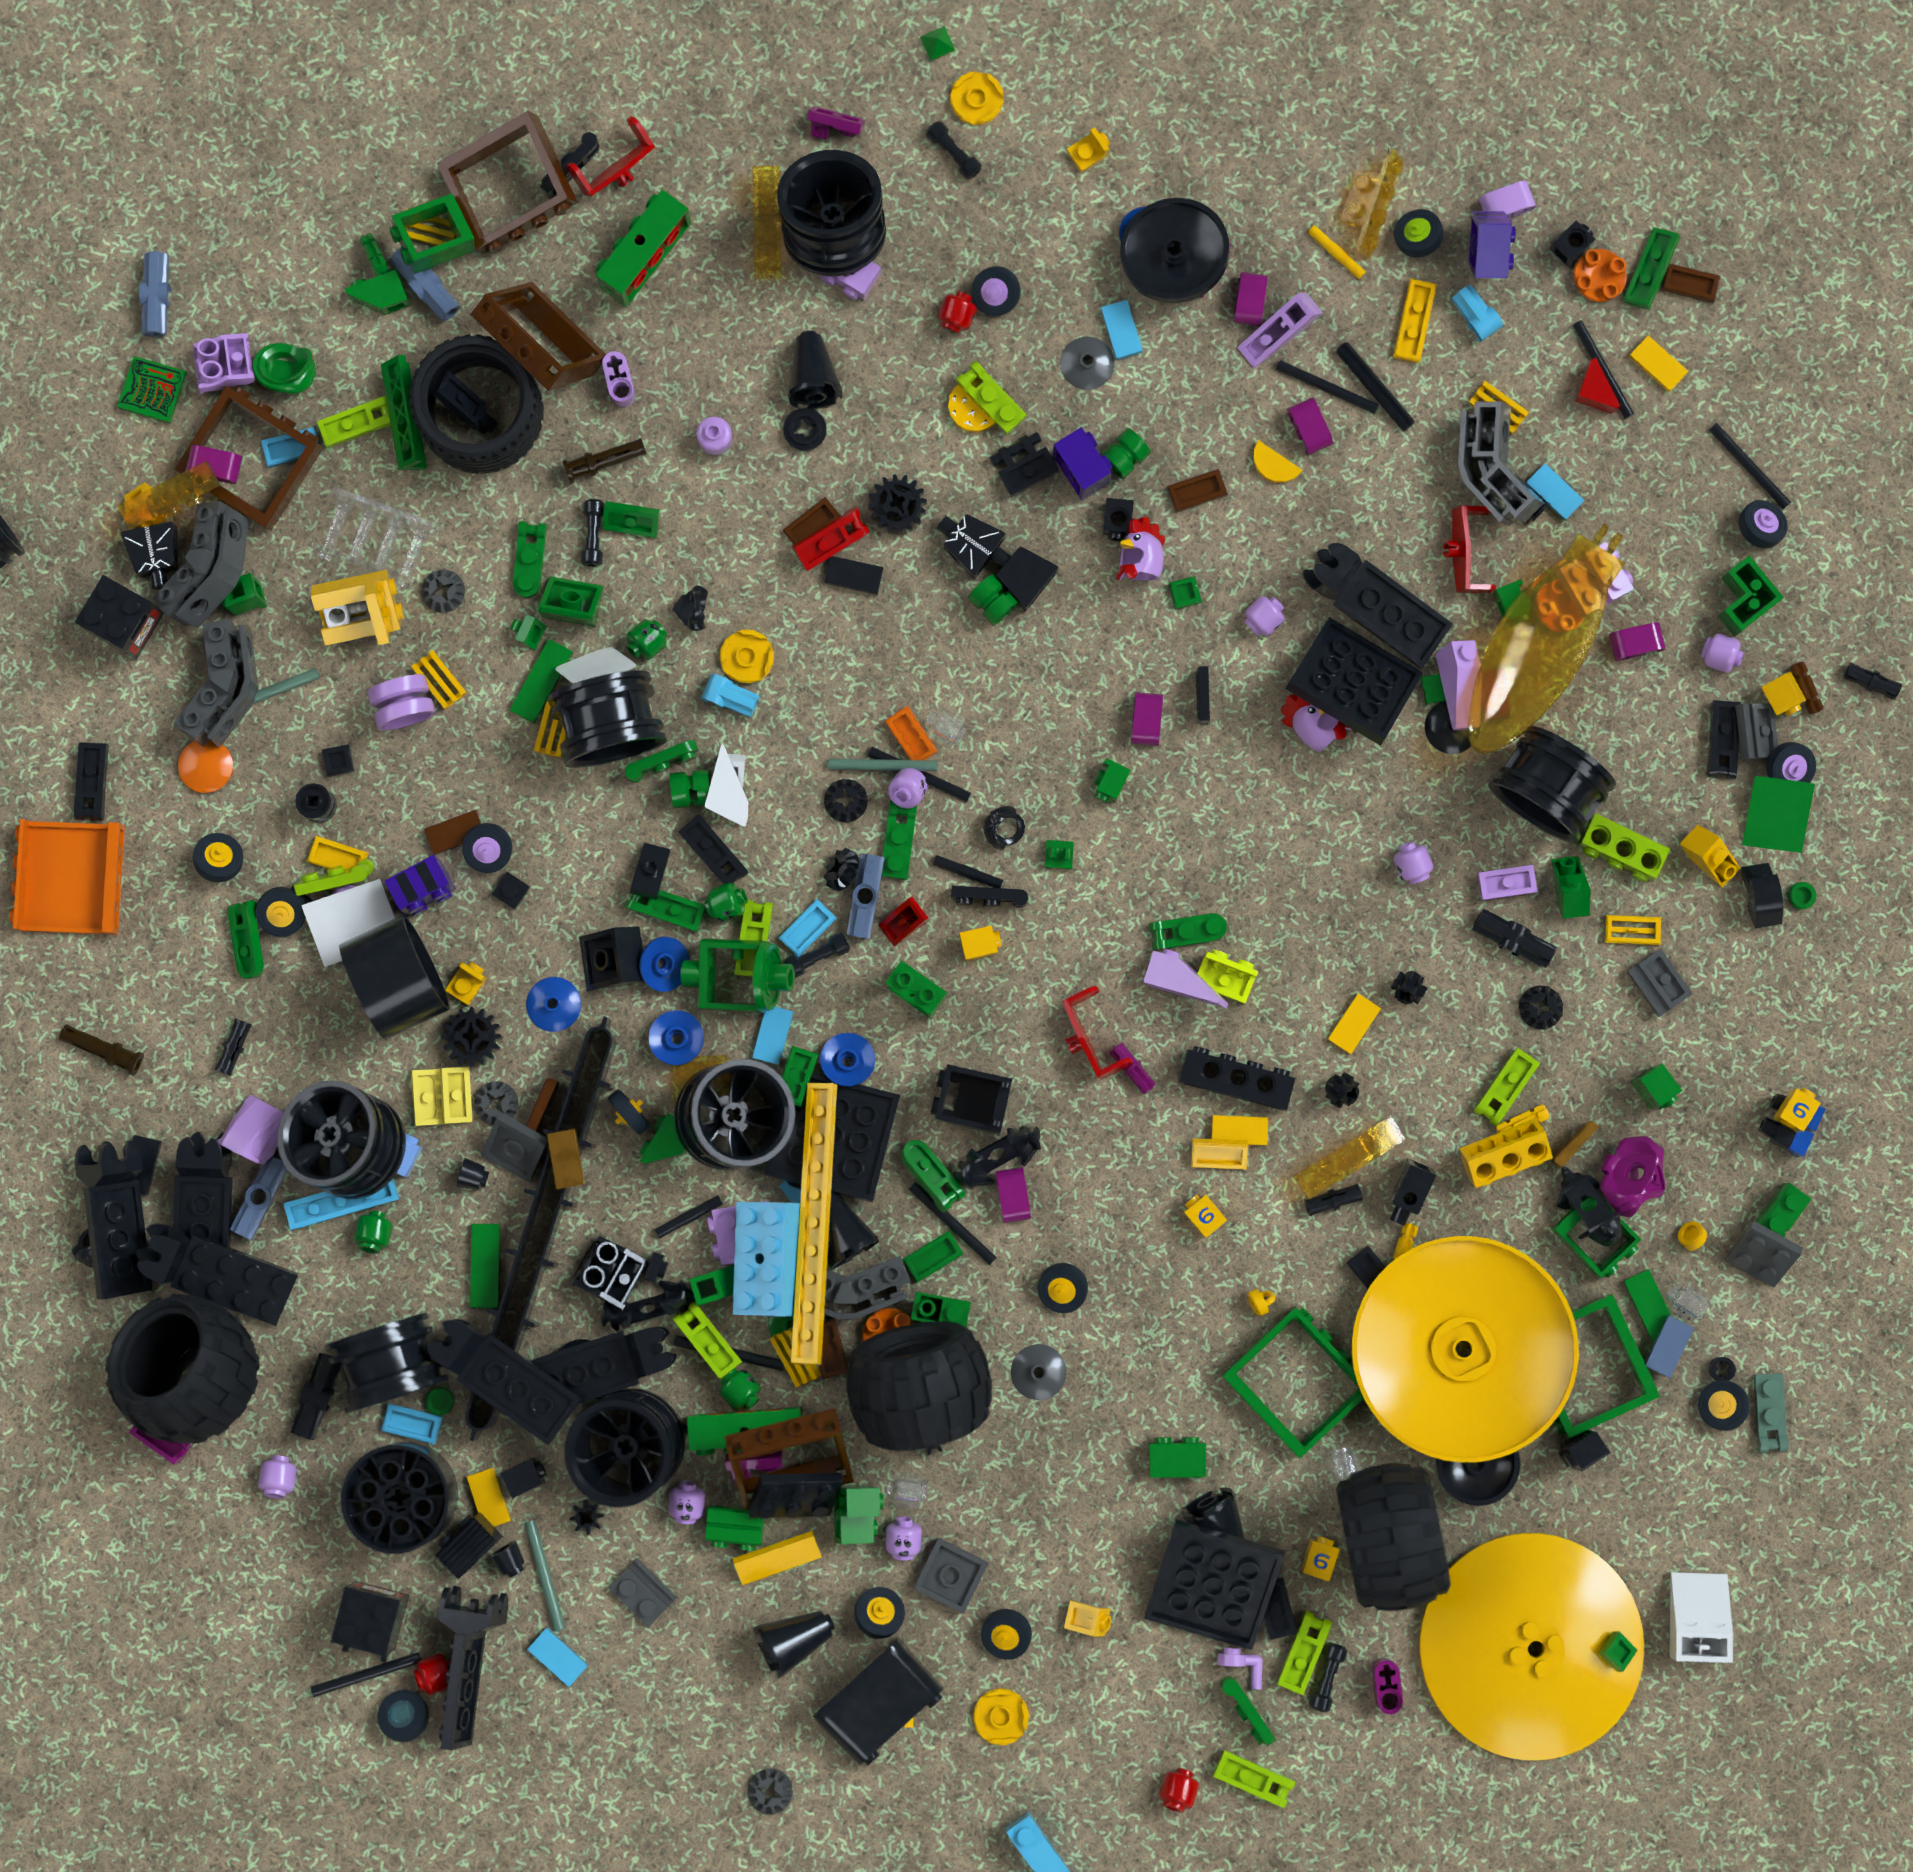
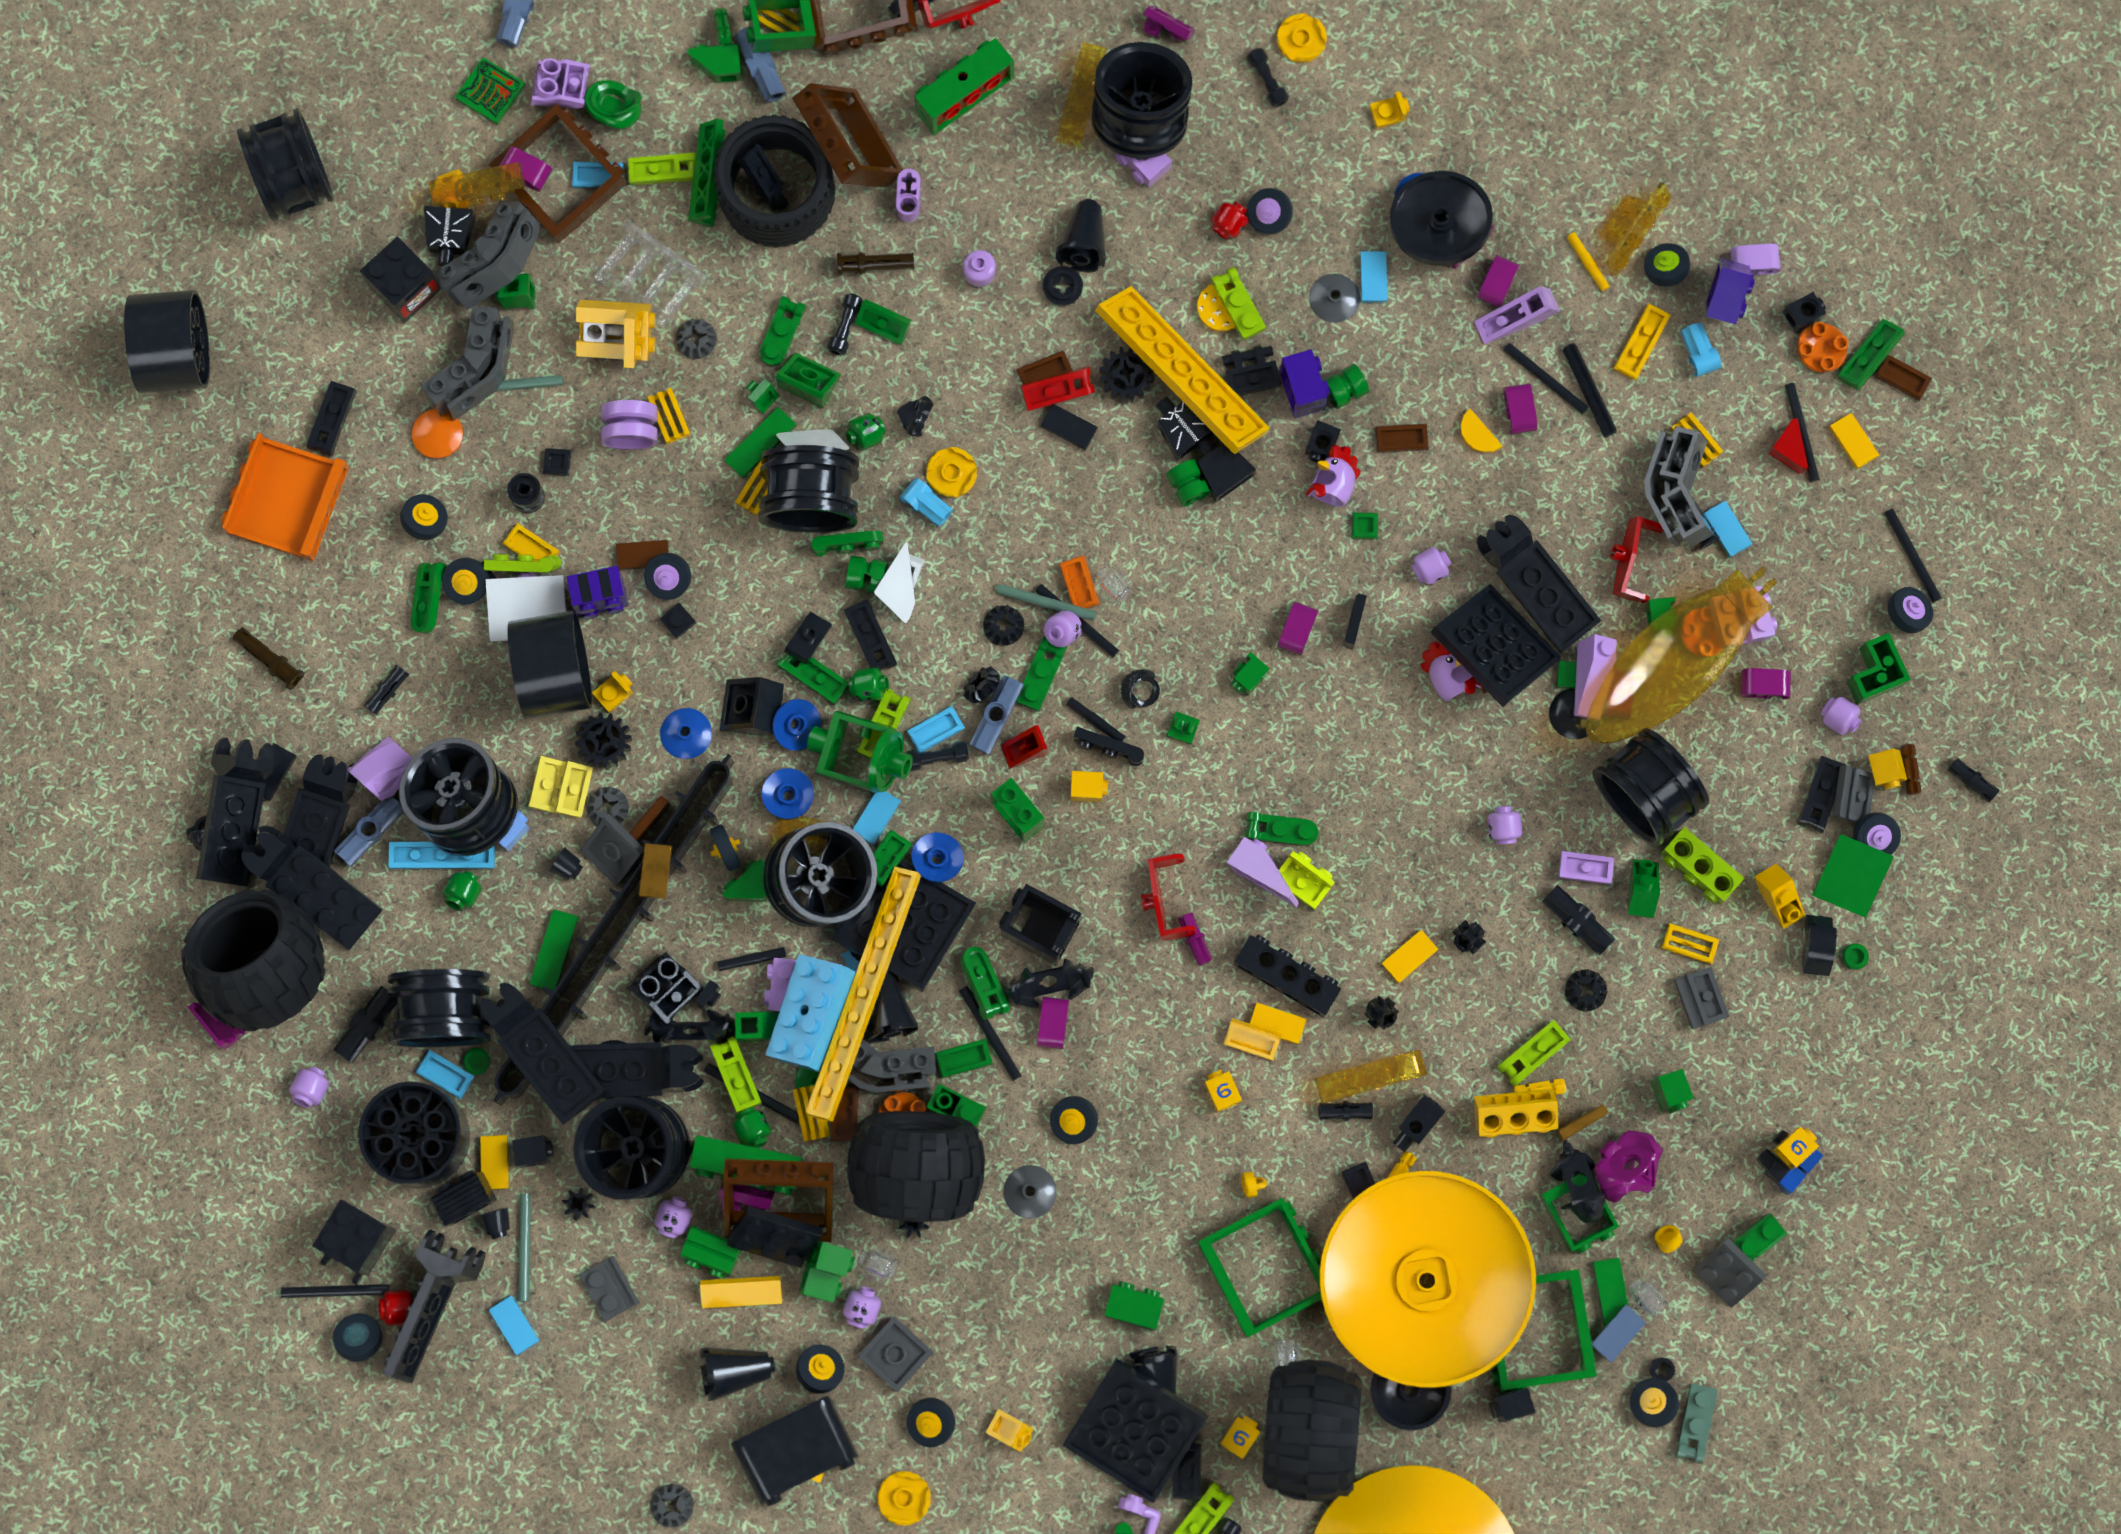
camera: 15 degrees right, 5 degrees down
(953, 483) = (1182, 369): none -> yellow plate

